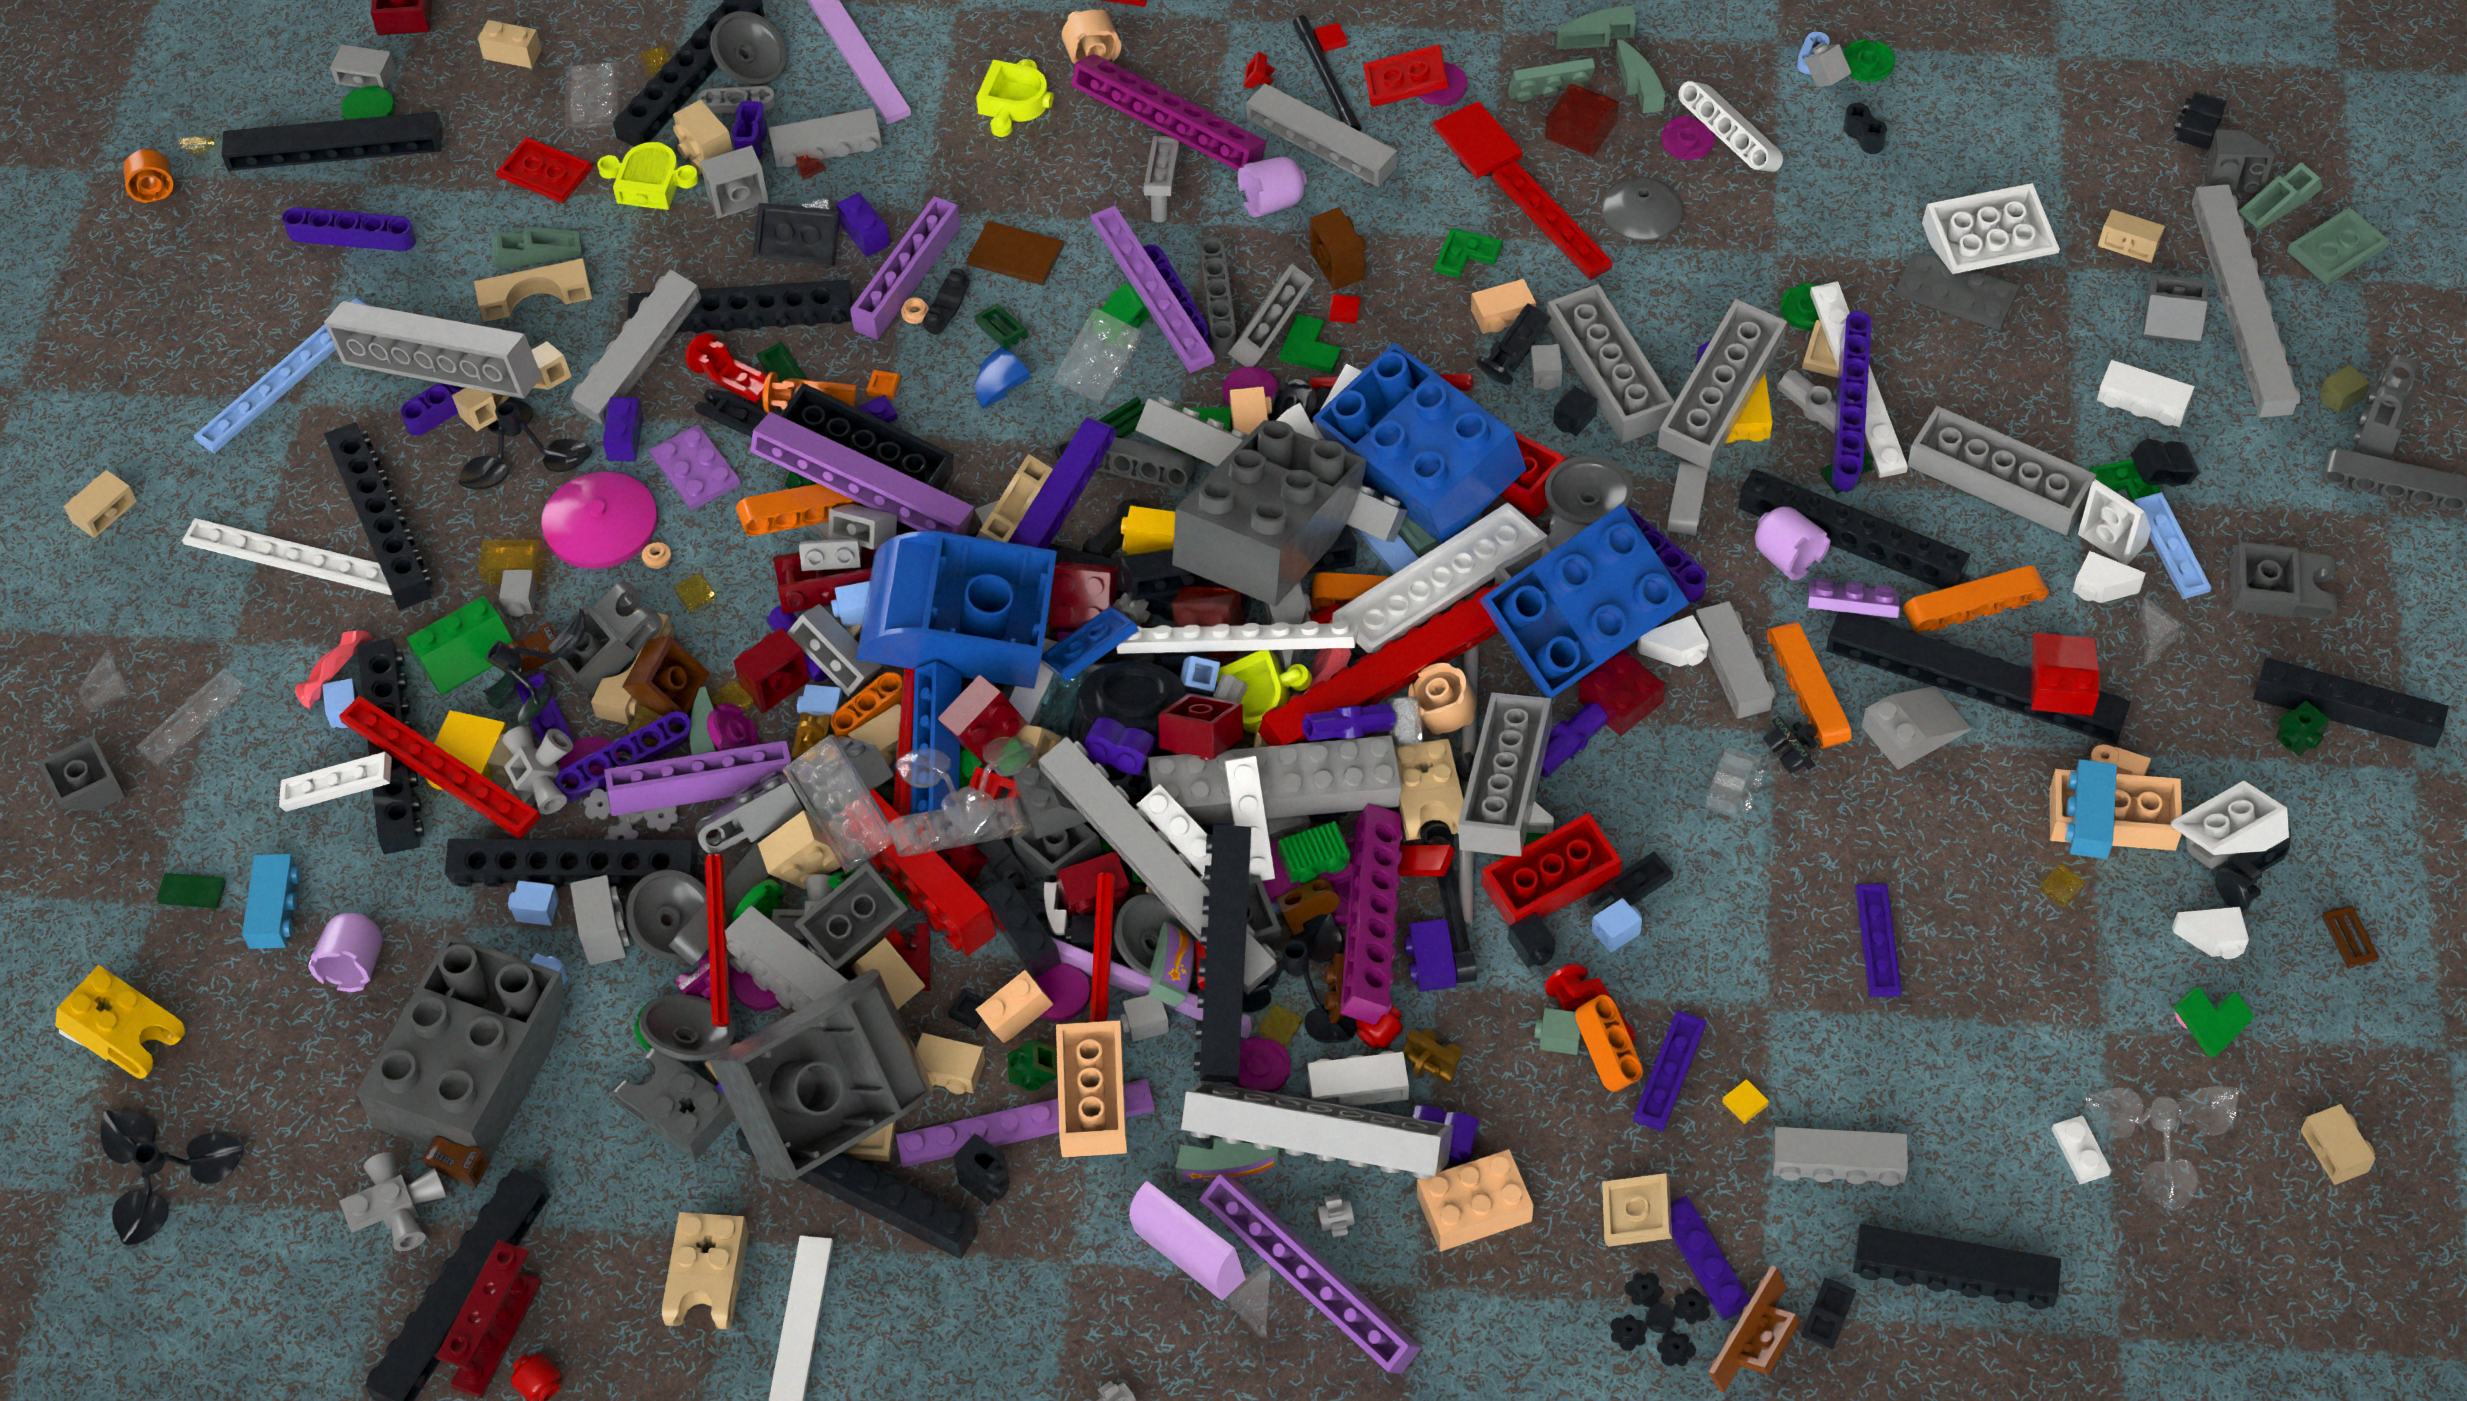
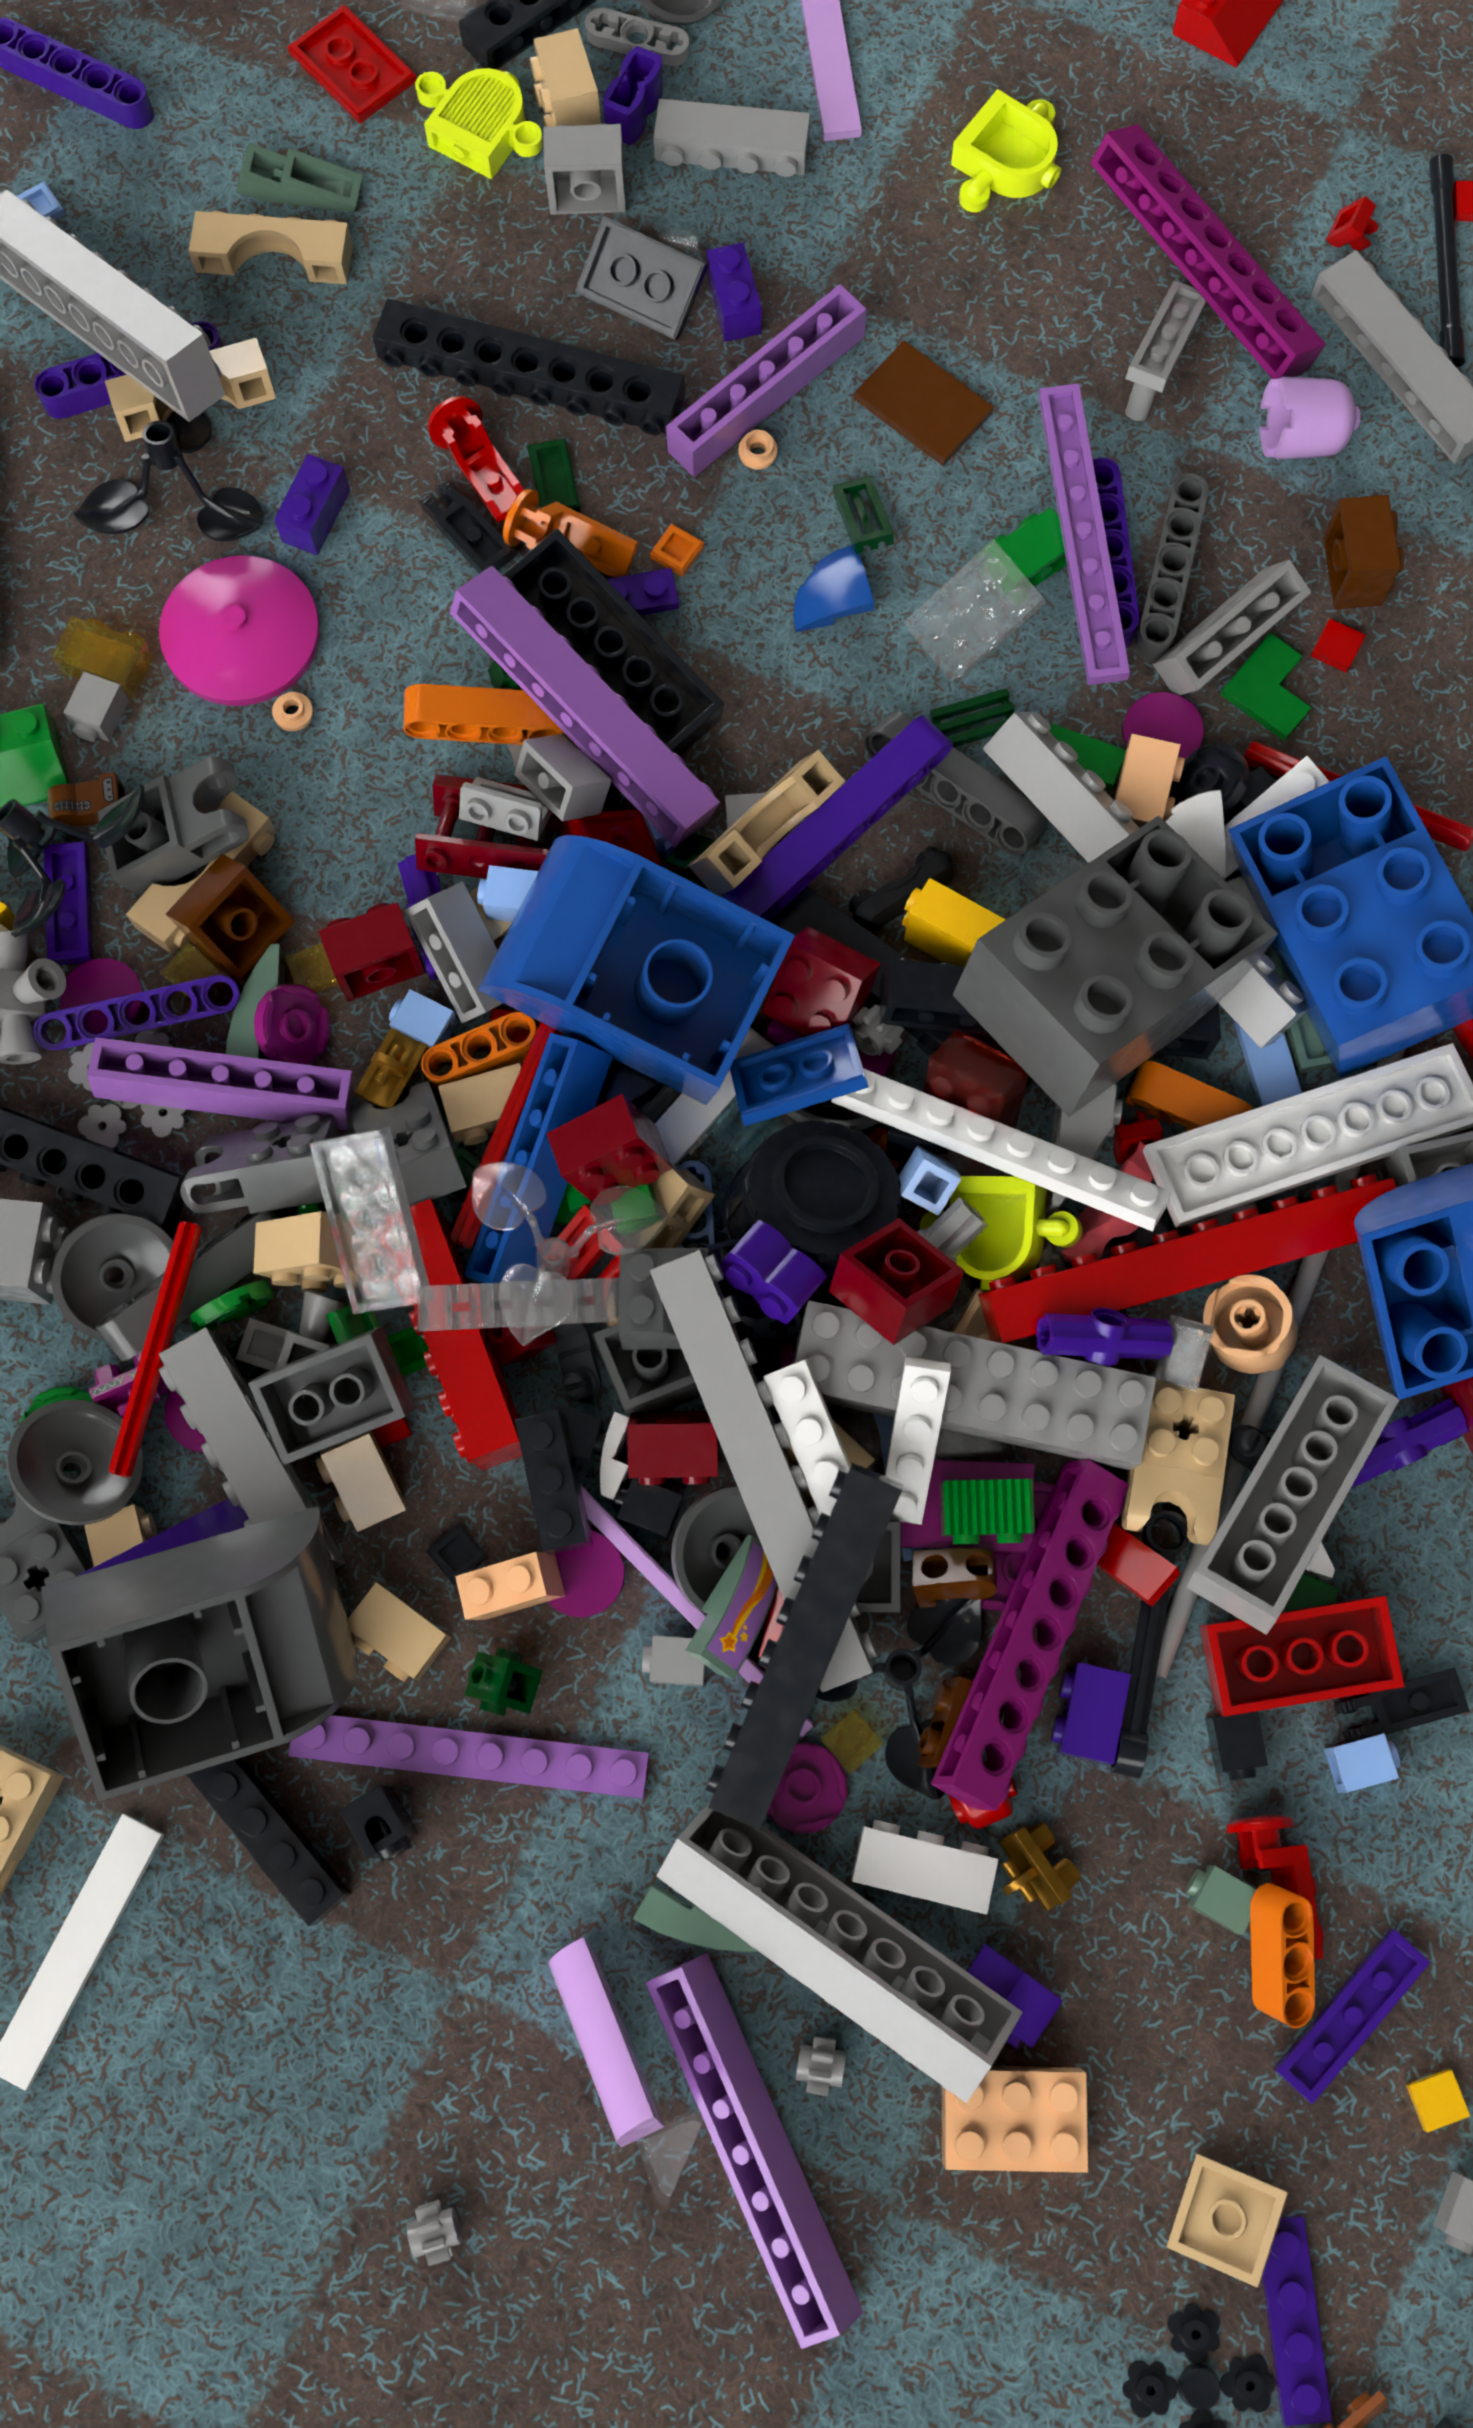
camera: 20 degrees right, 20 degrees up
(636, 345) = (369, 383): light grey brick -> none
(694, 467) = (388, 592): medium lavender plate -> none
(694, 592) = (320, 787): clear yellow plate -> none
(809, 167) = (695, 175): clear red tile -> none
(919, 956) = (413, 1468): dark red slope -> none
(947, 301) = (804, 451): black piece -> none
(1090, 34) = (1143, 93): light nougat brick -> none
(1091, 1089) = (560, 1763): light nougat brick -> none
(1102, 947) = (642, 1575): red axle -> none

